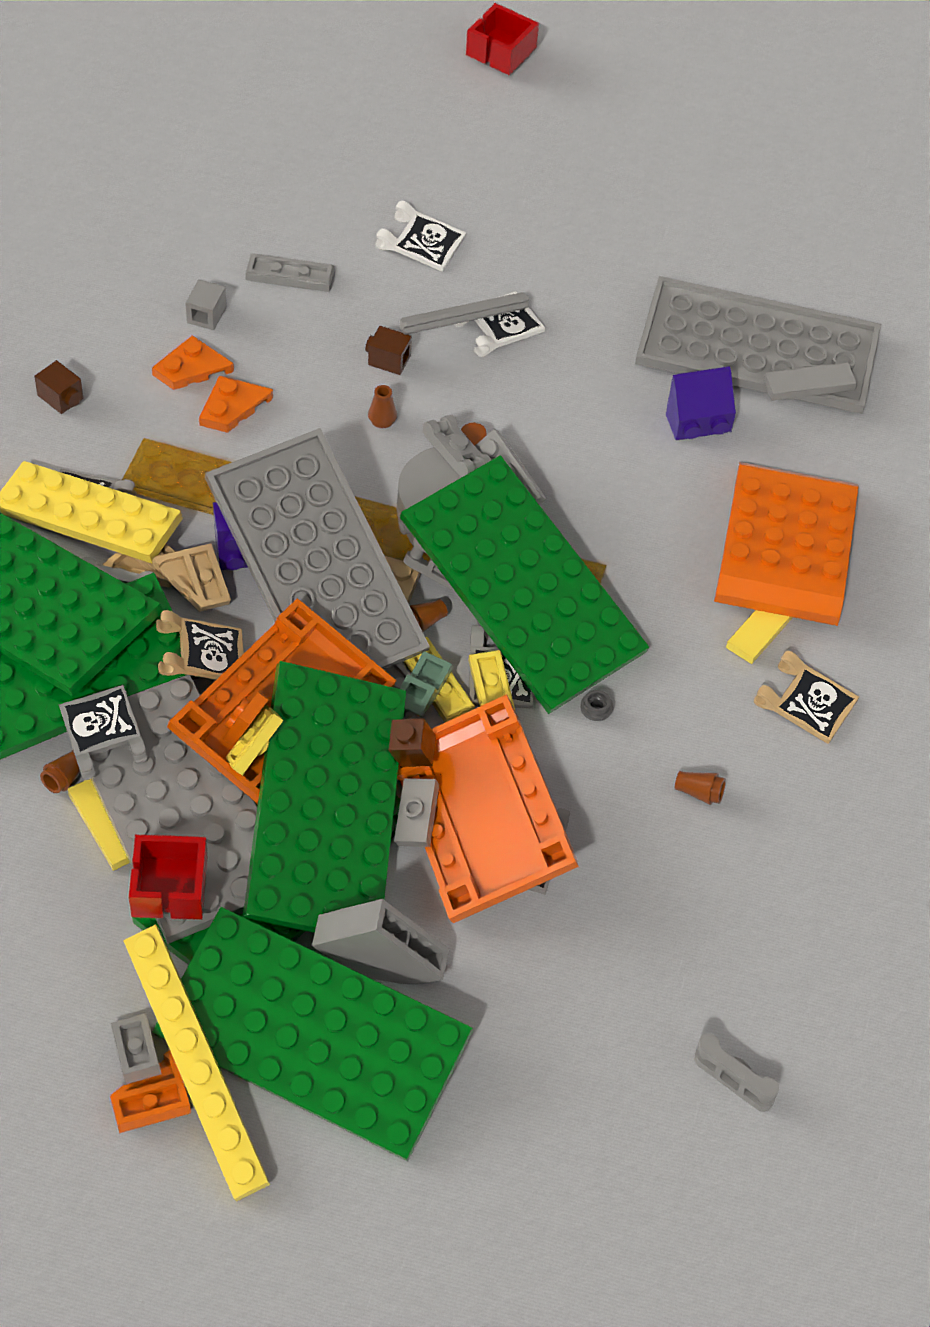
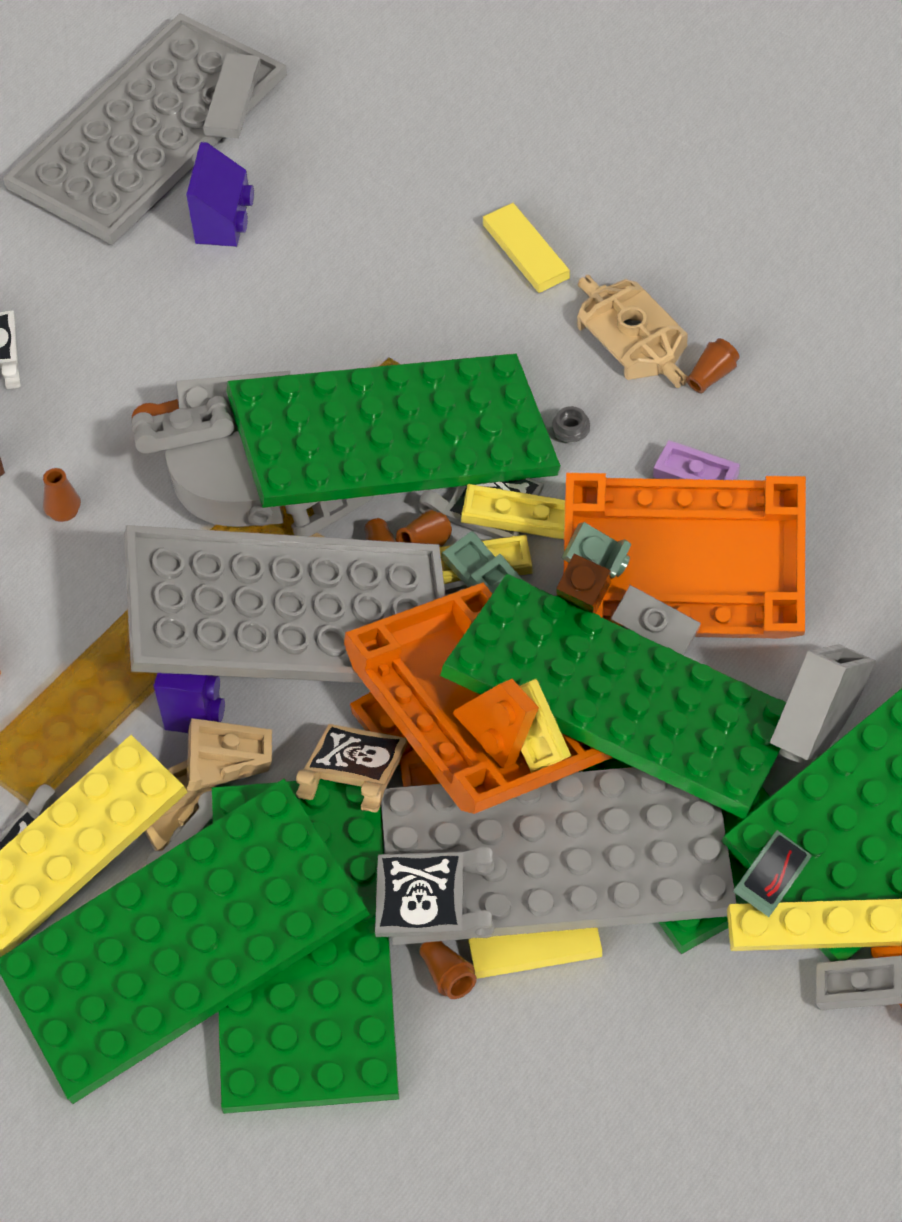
camera: 60 degrees left, 0 degrees up
(168, 876) = (682, 865): red piece -> none
(188, 943) = (772, 873): none -> slope
(442, 636) = (428, 528): none -> dark orange cone
(450, 743) = (598, 548): none -> sand green bracket
(587, 804) = (688, 463): none -> lavender plate
(710, 739) = (643, 348): none -> tan plate
(787, 544) = (436, 187): orange slope -> none
(810, 700) = (639, 240): flag -> none

